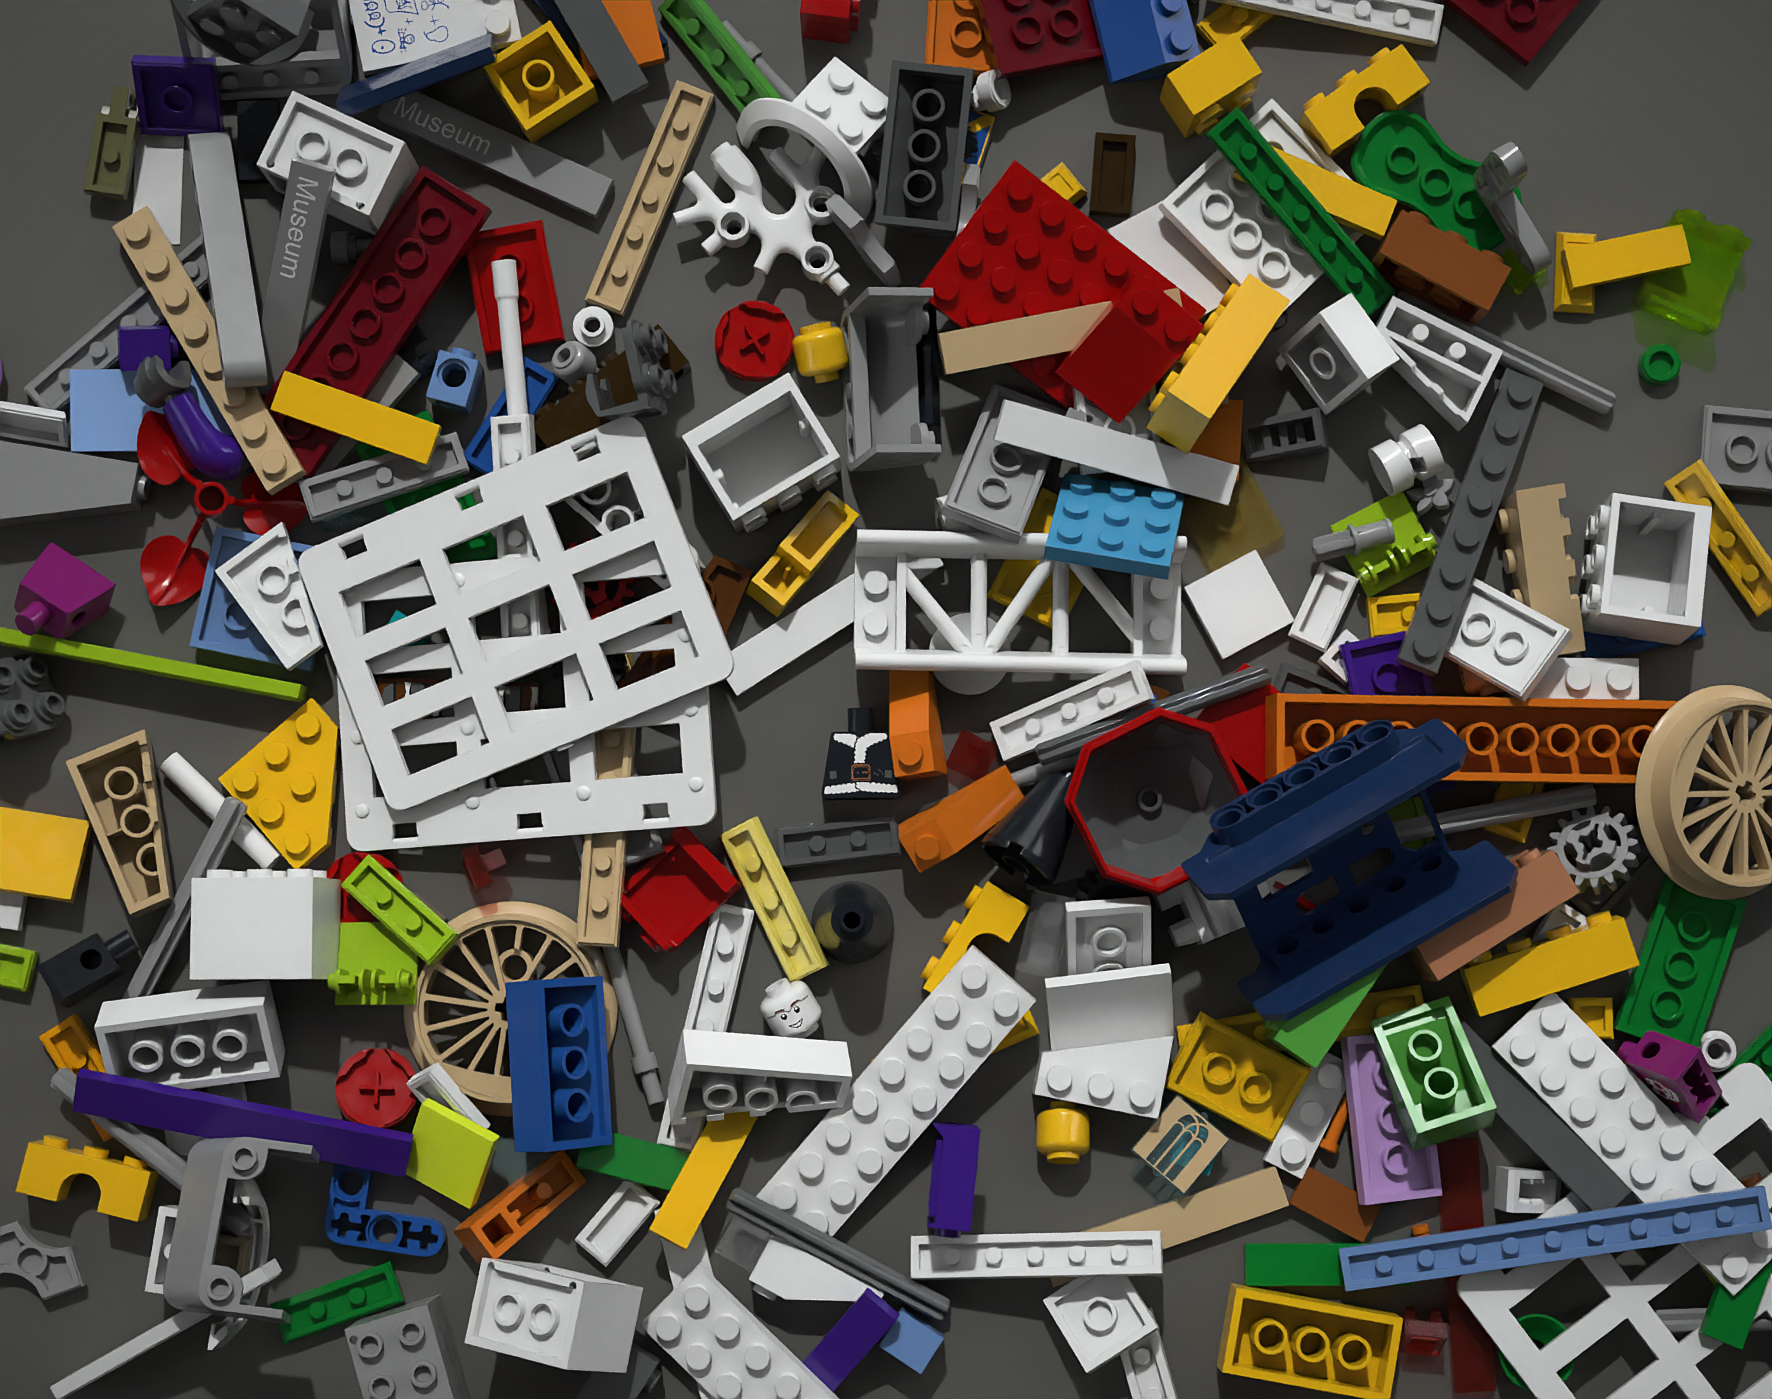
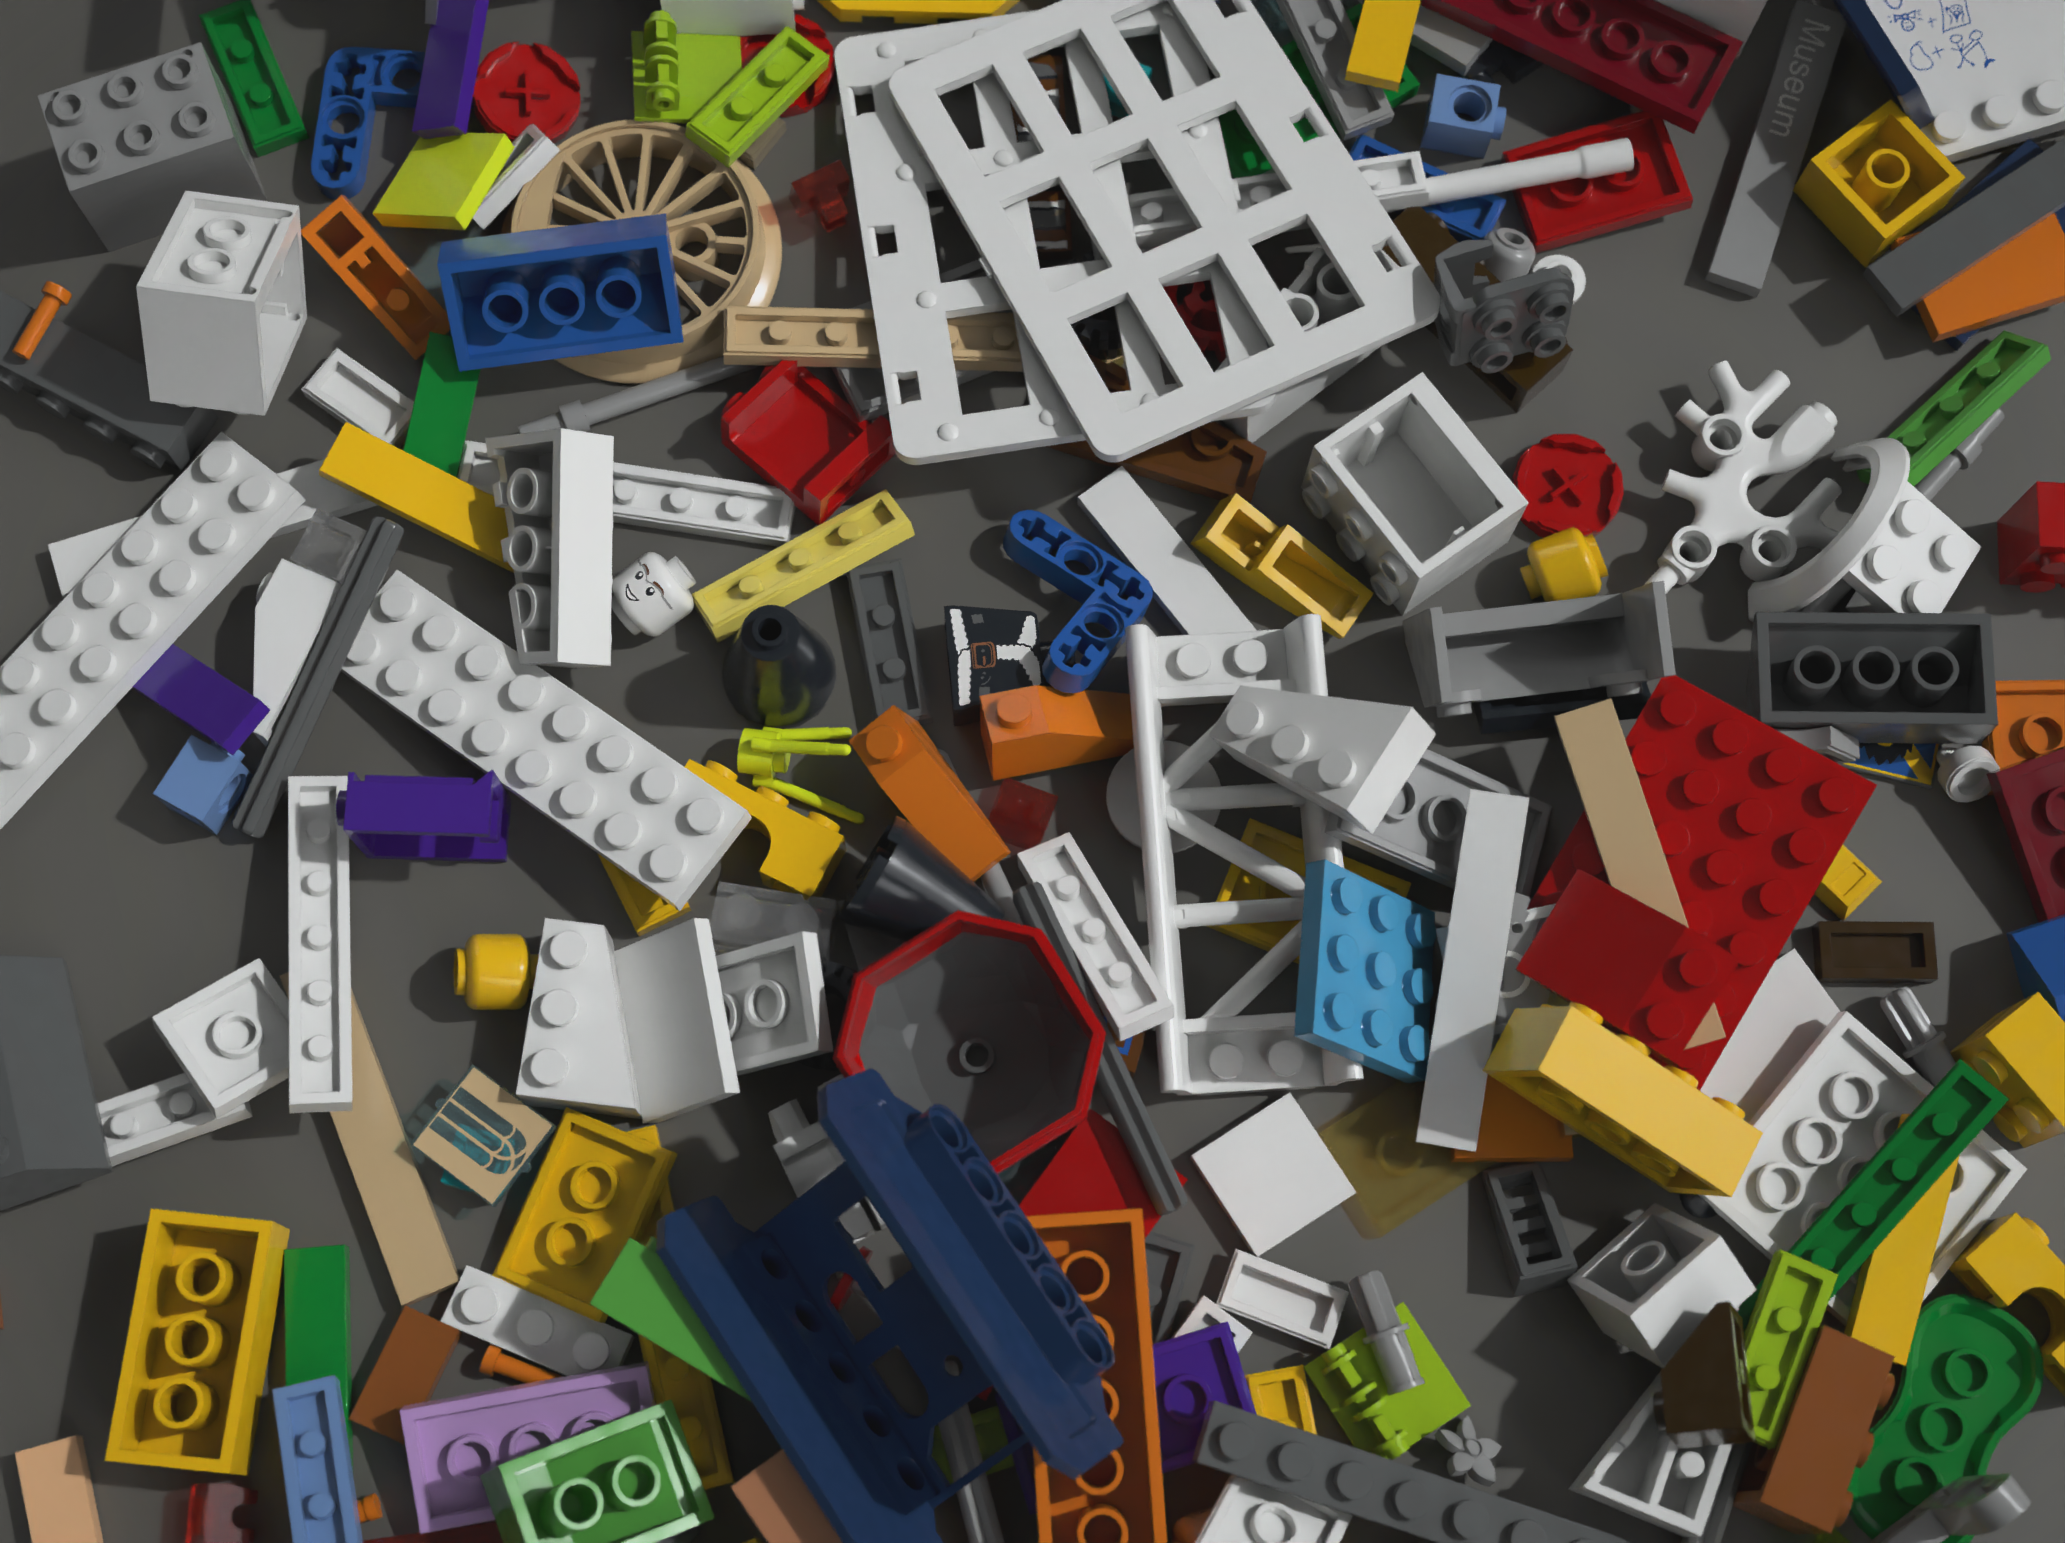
camera: 85 degrees right, 10 degrees down
(649, 198) = (1744, 340): tan tile -> none
(821, 684) = (1099, 603): none -> blue beam
(863, 240) = (1728, 605): light grey tile -> none
(916, 933) = (770, 751): none -> neon yellow plant
(969, 538) = (1326, 748): none -> white wedge
(1176, 154) = (1918, 1035): none -> light grey axle
(1388, 286) = (1782, 1338): none -> lime tile
(1403, 461) = (1511, 1383): white wheel -> none
(1414, 333) = (1707, 1385): none -> dark brown slope

